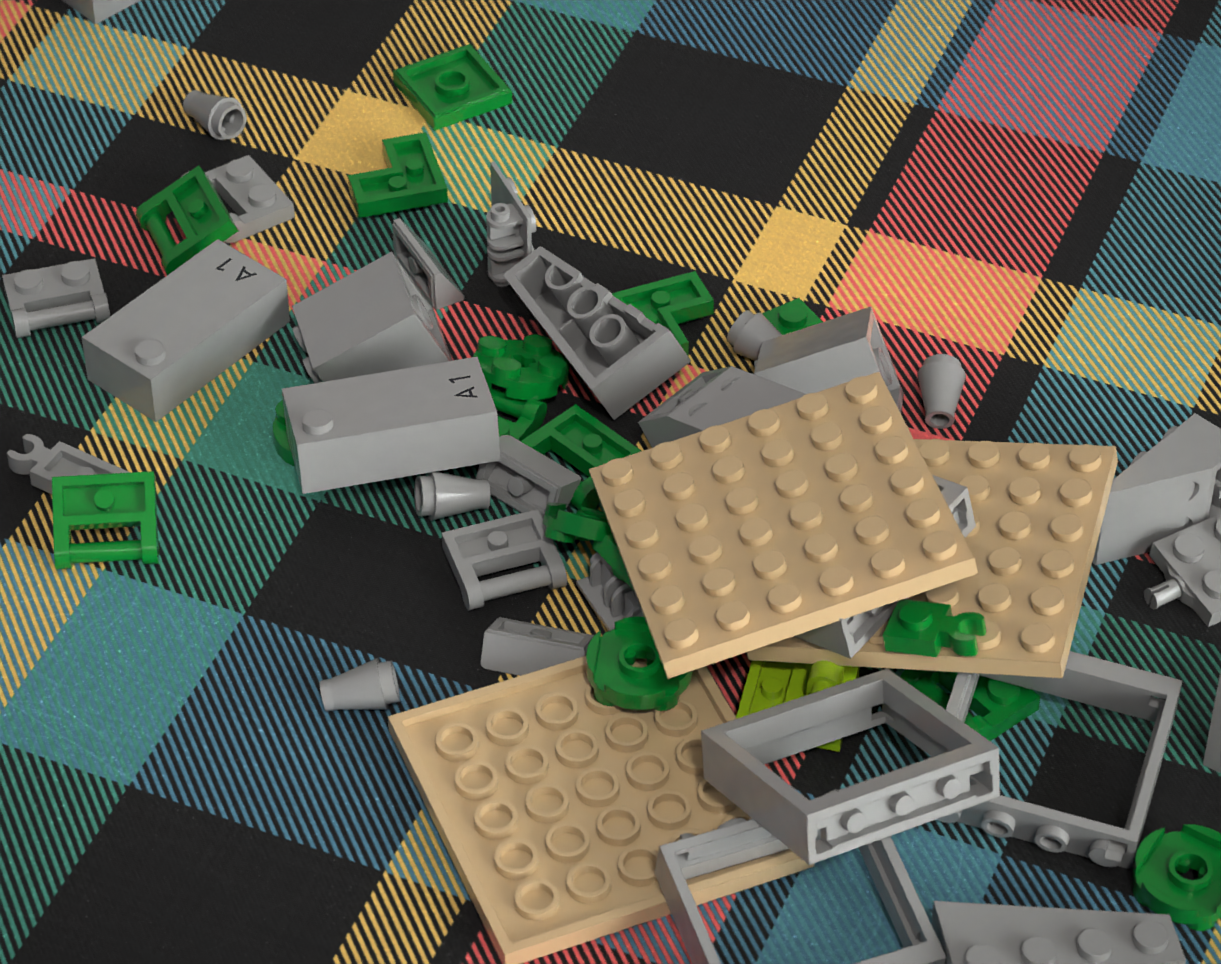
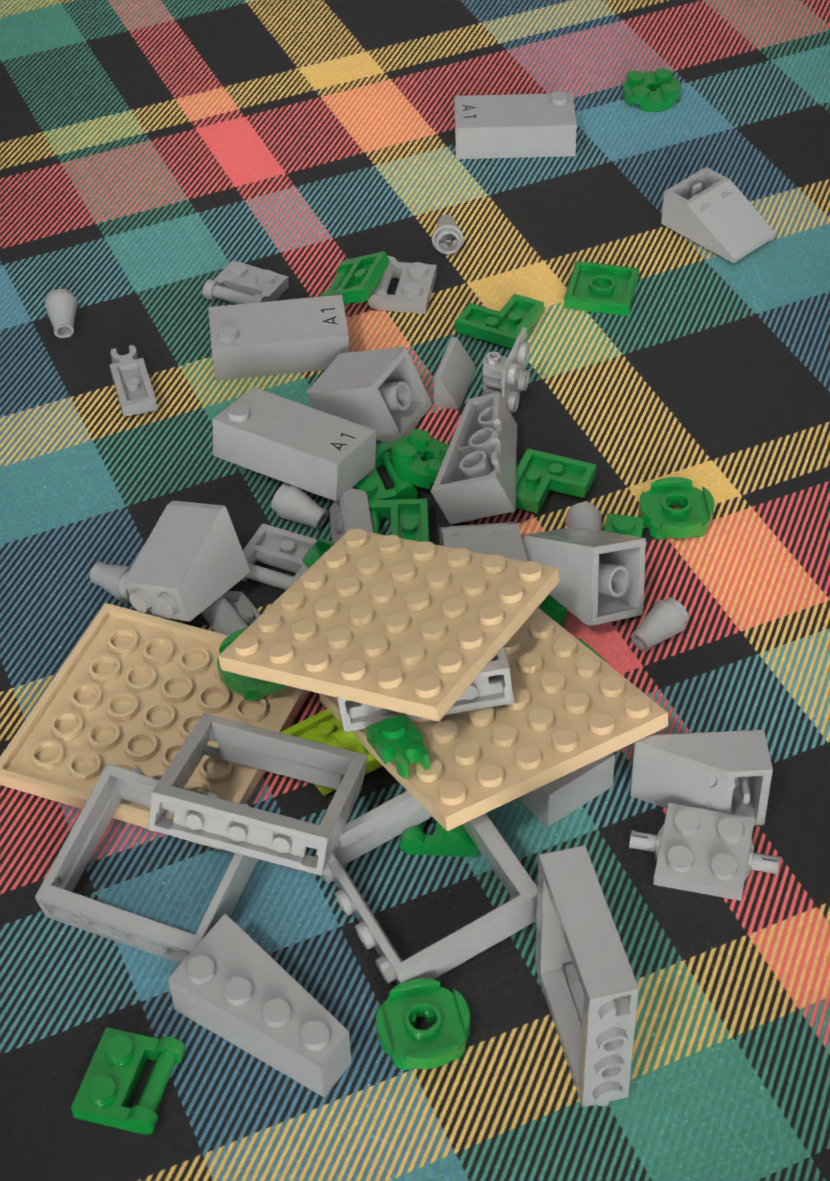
camera: 45 degrees right, 0 degrees up
(105, 503) = (114, 400): green plate -> none
(442, 613) = (186, 562): none -> light grey slope
(795, 260) = (689, 520): none -> green plate

